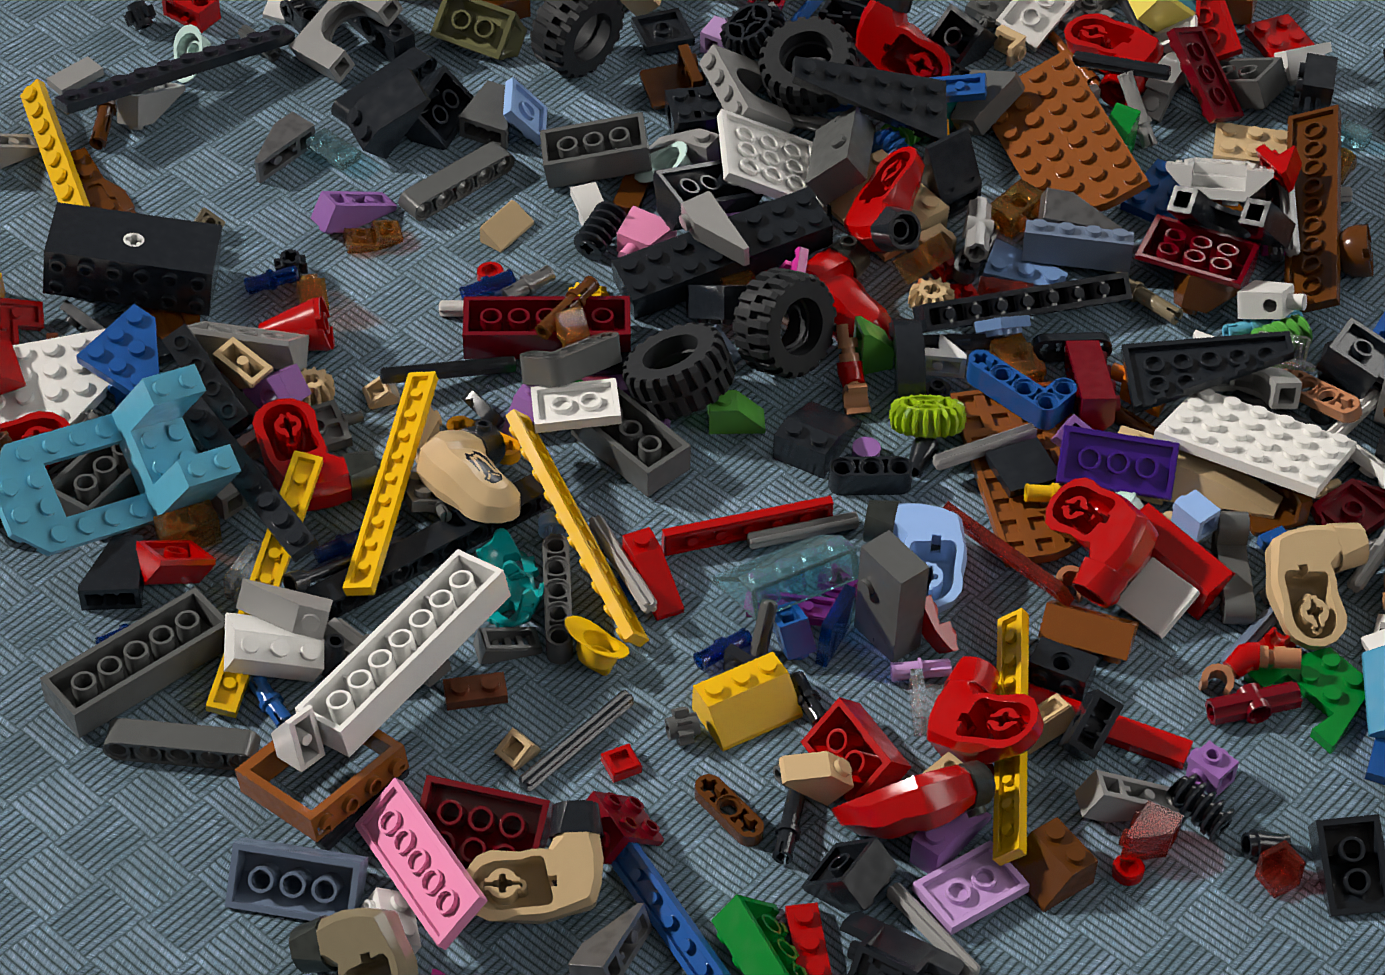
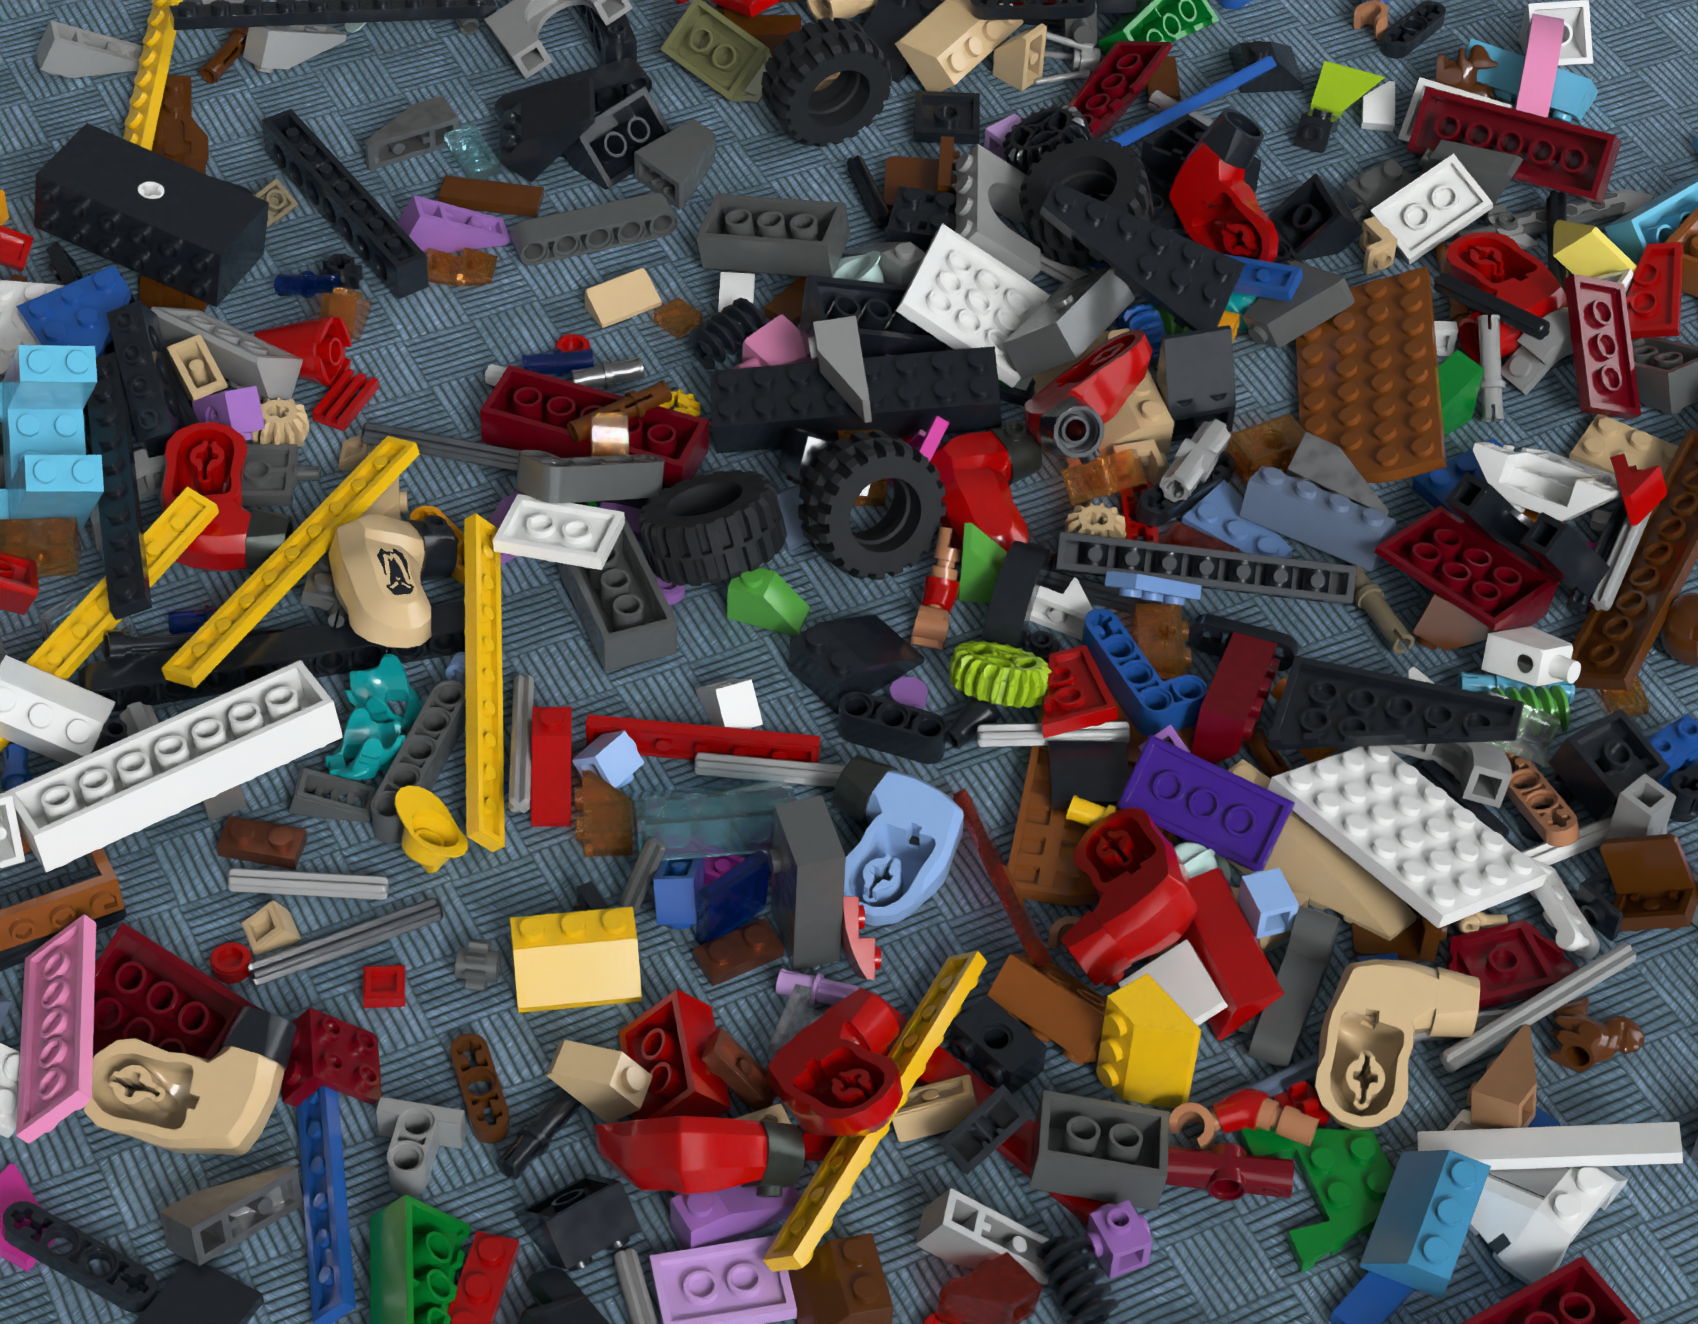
camera: 20 degrees right, 0 degrees up
(265, 211) = (345, 204): none -> black brick
(285, 608) = (80, 673): light grey slope -> none
(347, 342) = (340, 397): none -> red tile
(365, 177) = (492, 196): none -> reddish brown tile
(482, 408) = (462, 500): black beam -> none
(504, 779) = (230, 962): none -> red tile
(524, 110) = (717, 163): light blue plate -> none
(526, 709) = (308, 883): none -> light grey axle
(553, 229) = (677, 317): none -> clear orange tile
(637, 100) = (869, 191): none -> black axle
(692, 558) = (611, 758): none -> light blue brick
(709, 857) = (416, 1151): none -> light grey tile
(710, 597) = (605, 819): none -> clear orange slope
(715, 652) = (565, 888): clear blue pin -> none
(751, 491) = (731, 703): none -> white slope
(807, 697) = (654, 979): black pin -> none
(851, 662) = (738, 952): none -> copper plate
(912, 744) = (738, 1069): none -> copper plate
(989, 413) = (1075, 693): none -> red wing
(1170, 635) = (1147, 1046): none -> yellow slope
(1171, 714) = (1099, 1150): none -> dark grey brick
(1335, 315) = (1631, 702): none -> clear orange tile

